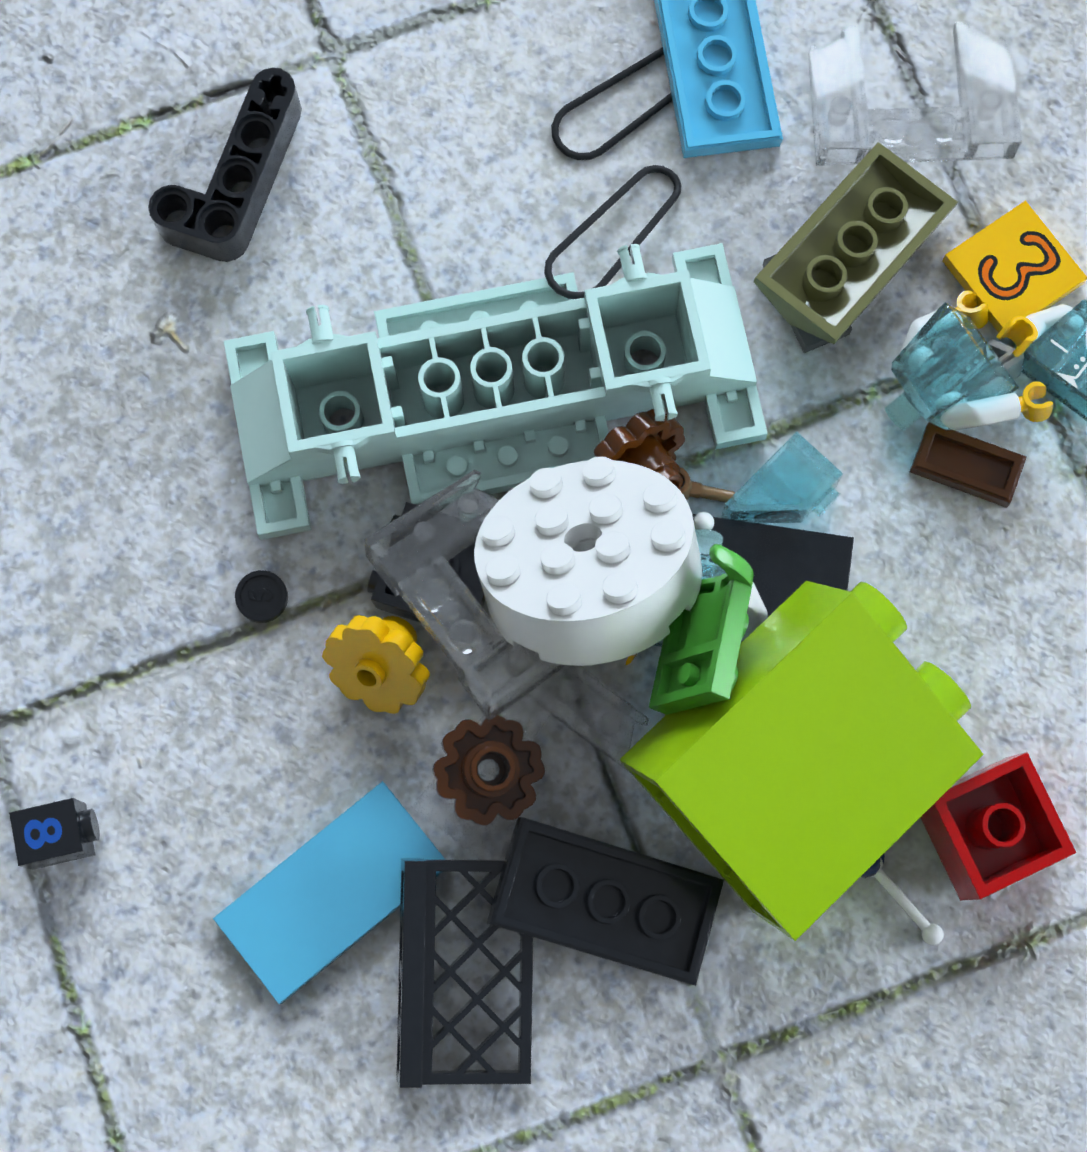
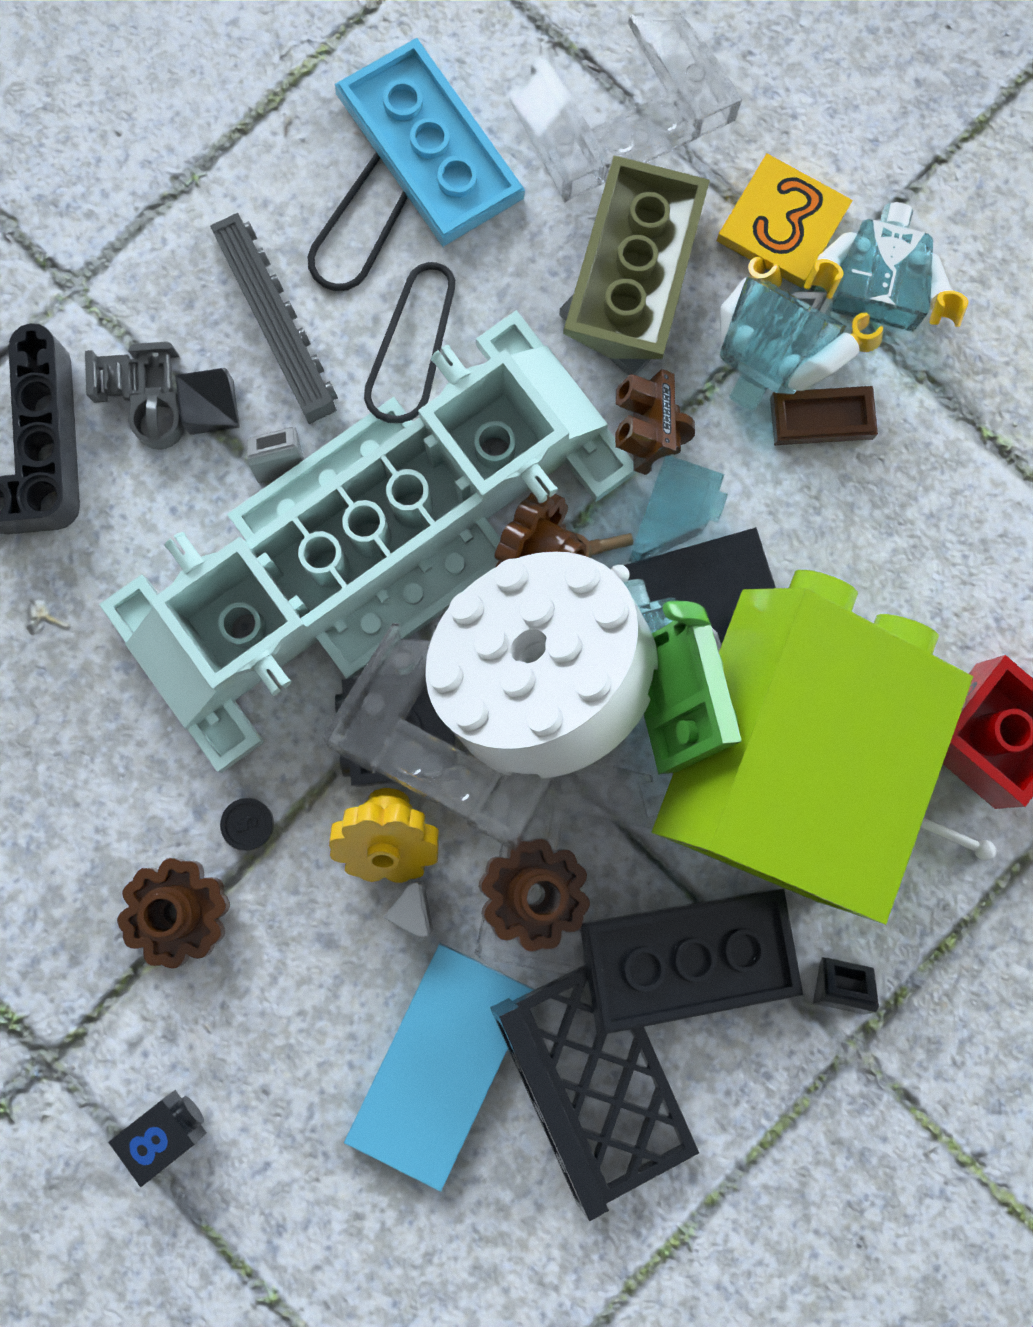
camera: 30 degrees left, 5 degrees up
(172, 663) = (198, 907): none -> reddish brown plant
(361, 166) = (147, 378): none -> dark grey piece
(373, 737) = (412, 911): none -> light grey slope
(404, 204) = (207, 401): none -> black slope
(441, 277) = (273, 453): none -> light grey slope
(500, 157) = (275, 317): none -> dark grey piece
(739, 998) = (846, 987): none -> black slope
(805, 402) = (656, 423): none -> reddish brown hips

